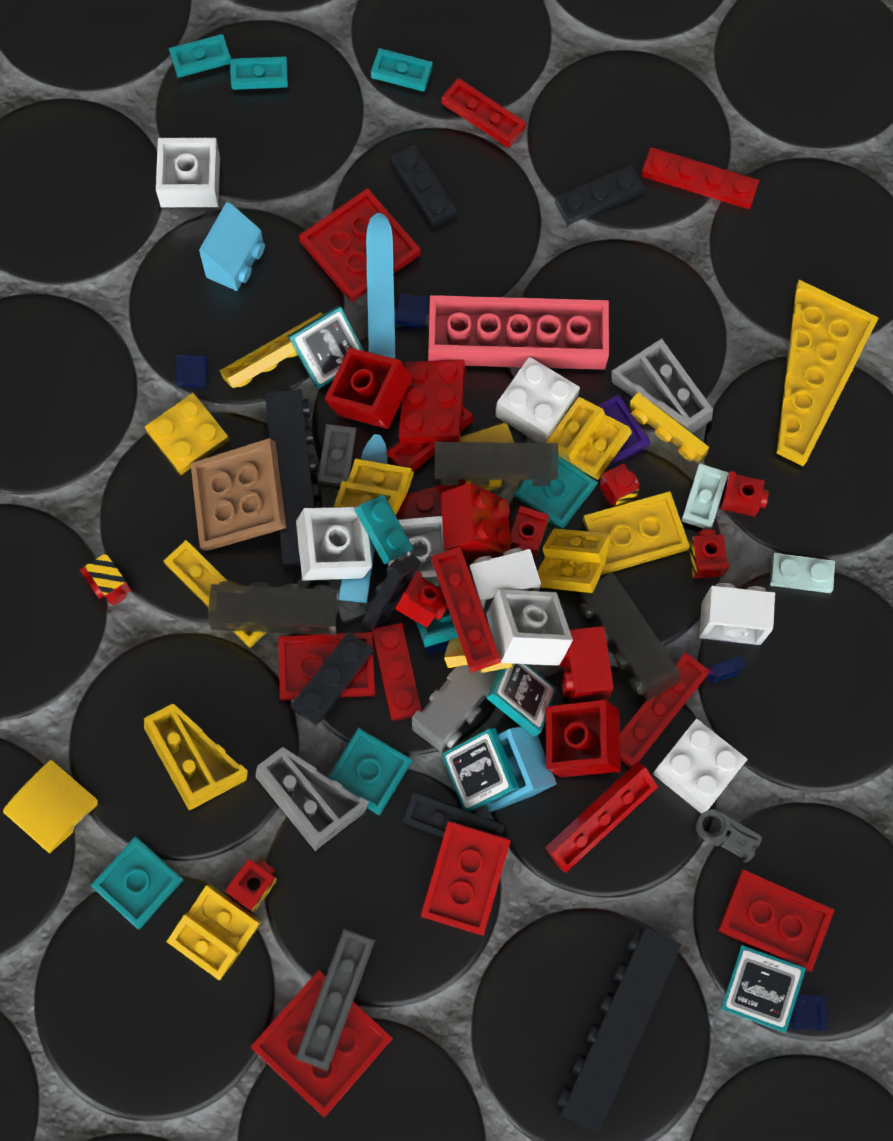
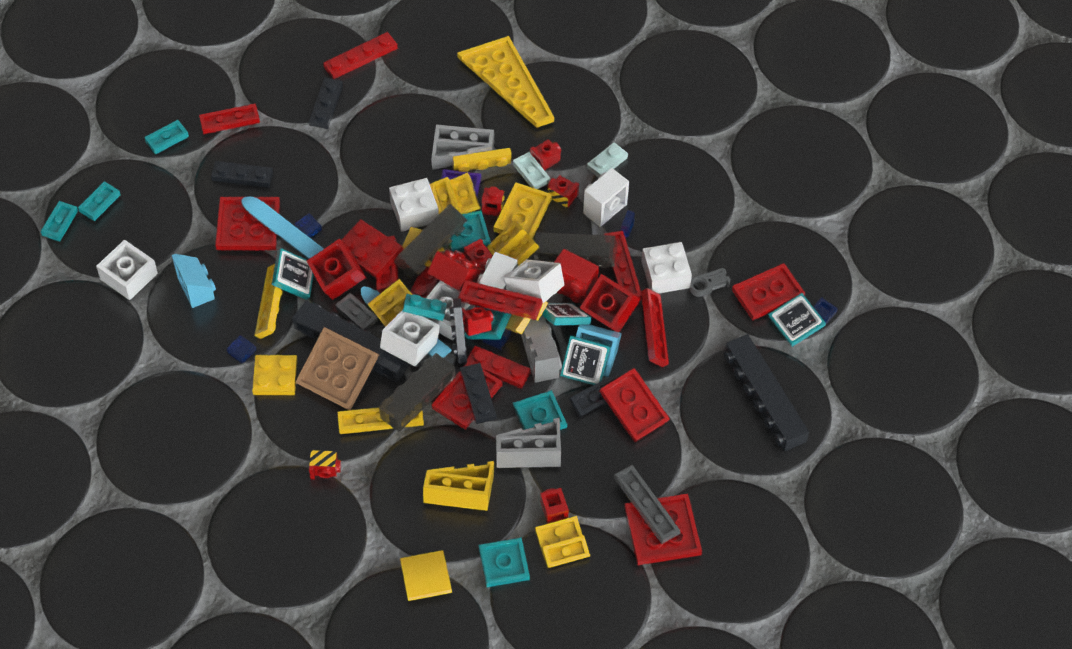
camera: 50 degrees left, 15 degrees down
(513, 329) = (368, 185): coral brick -> none

